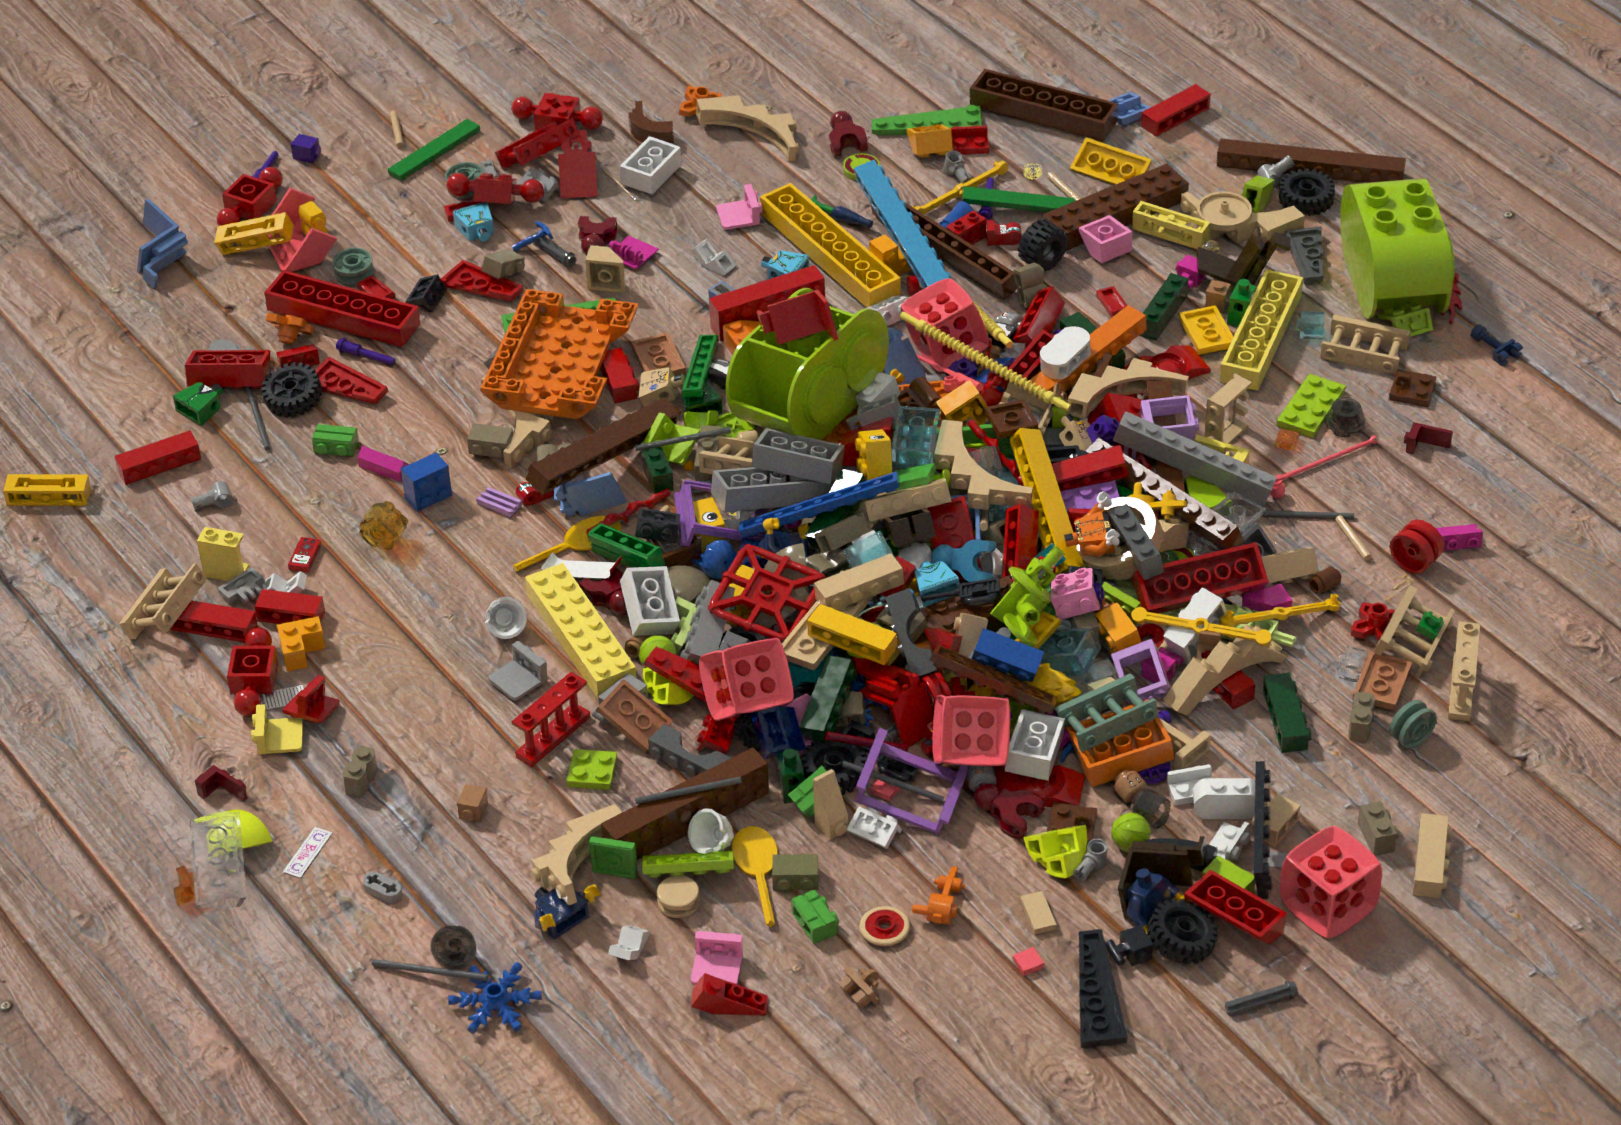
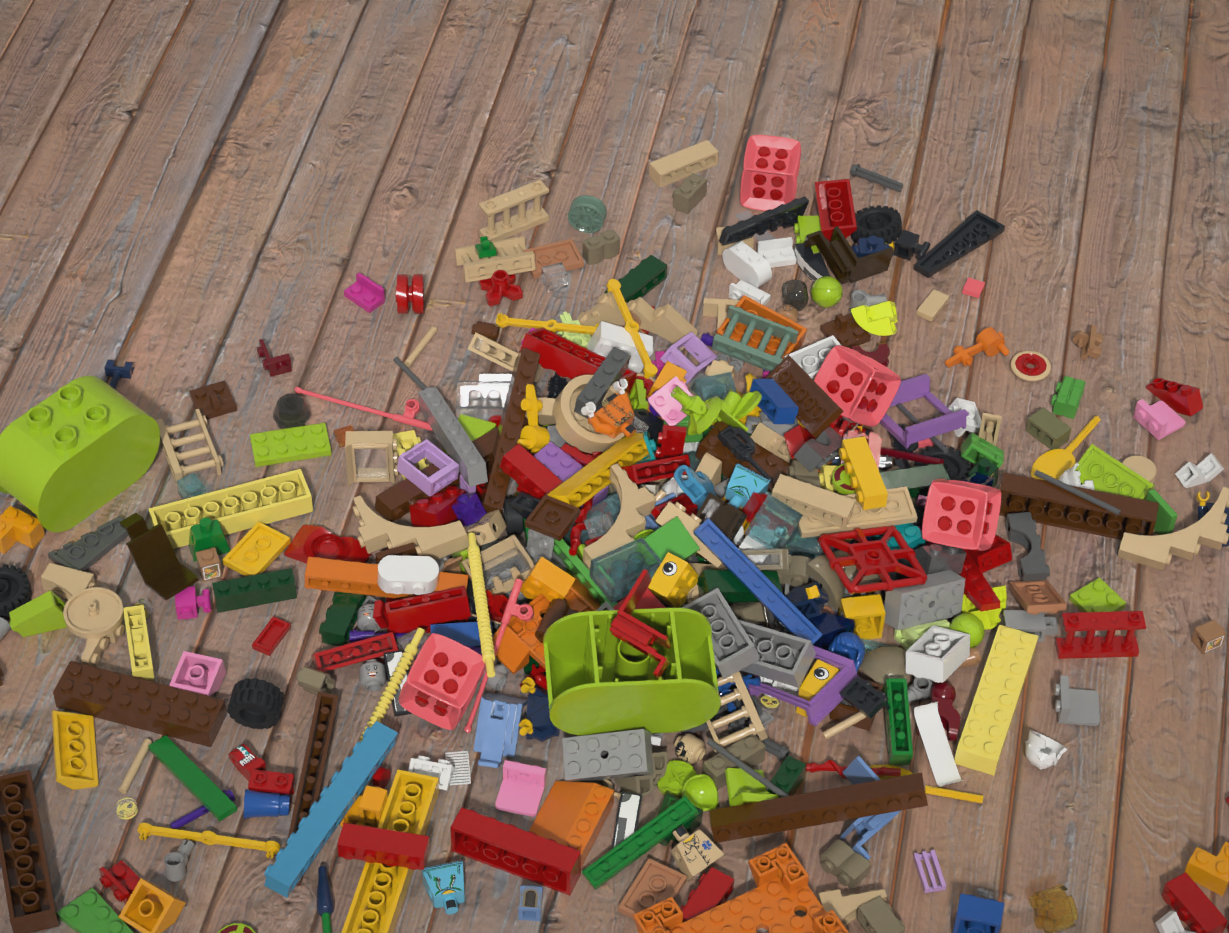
camera: 135 degrees left, 5 degrees up
(530, 495) = (892, 851): red leg -> none
(838, 230) = (383, 846): none -> red brick

